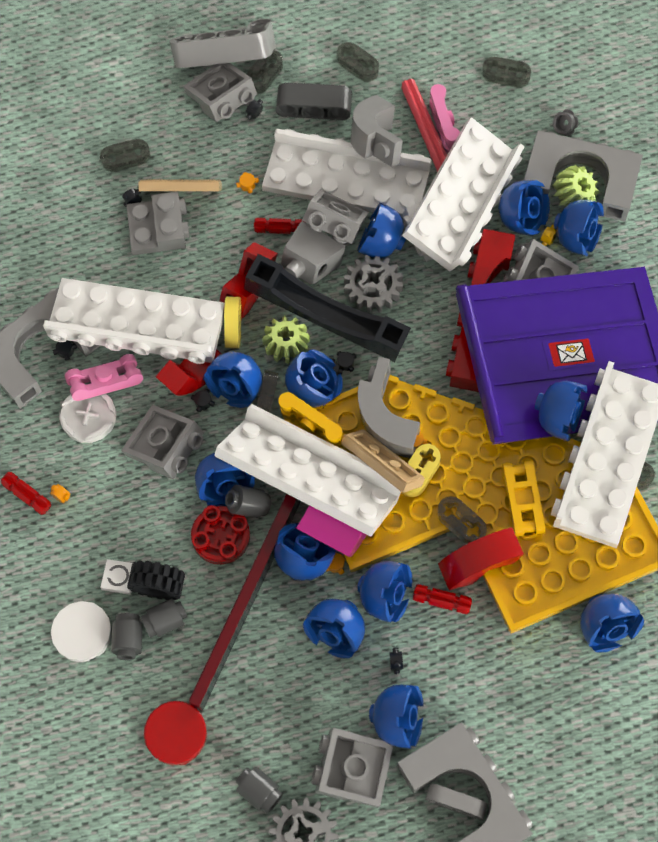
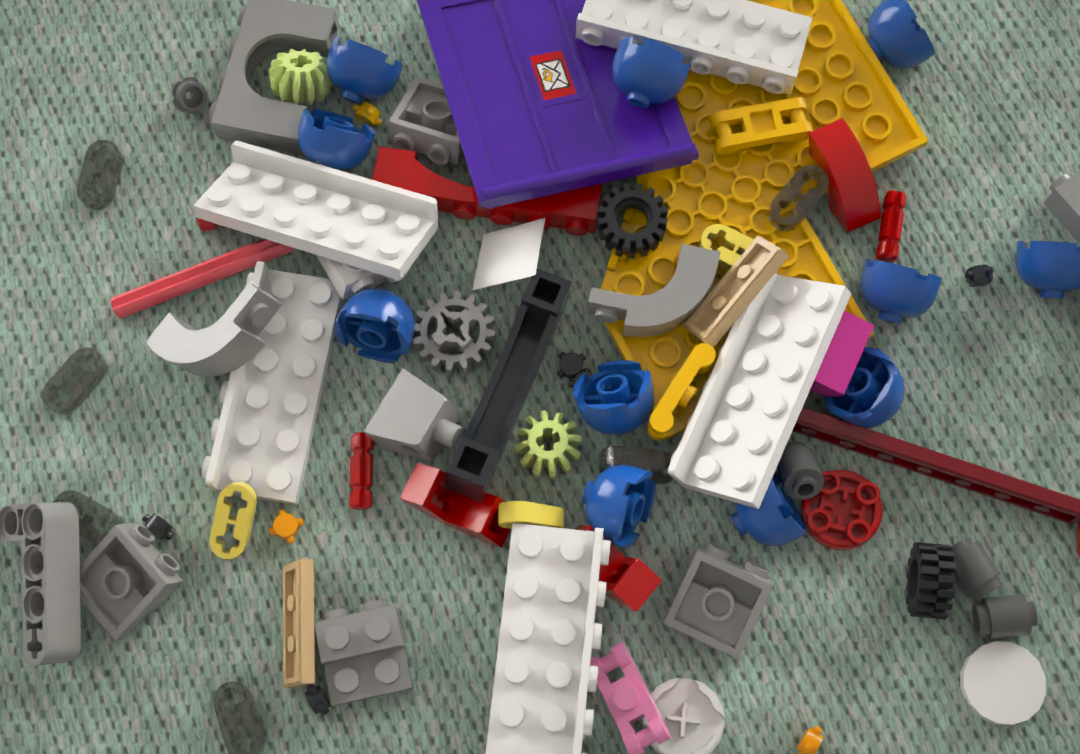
camera: 95 degrees left, 5 degrees up
(116, 577) = (920, 640): white tile -> none
(202, 400) = (646, 553): black piece -> none
(253, 145) = (223, 519): none -> light yellow beam
(314, 101) = (147, 438): dark grey beam -> none
(334, 217) = (356, 384): light grey plate -> none
(337, 625) = (952, 342): blue cylinder -> none
(428, 318) = (509, 254): none -> white sticker
(443, 119) = (182, 252): bright pink plate -> none
(446, 381) = (635, 199): none -> black tyre

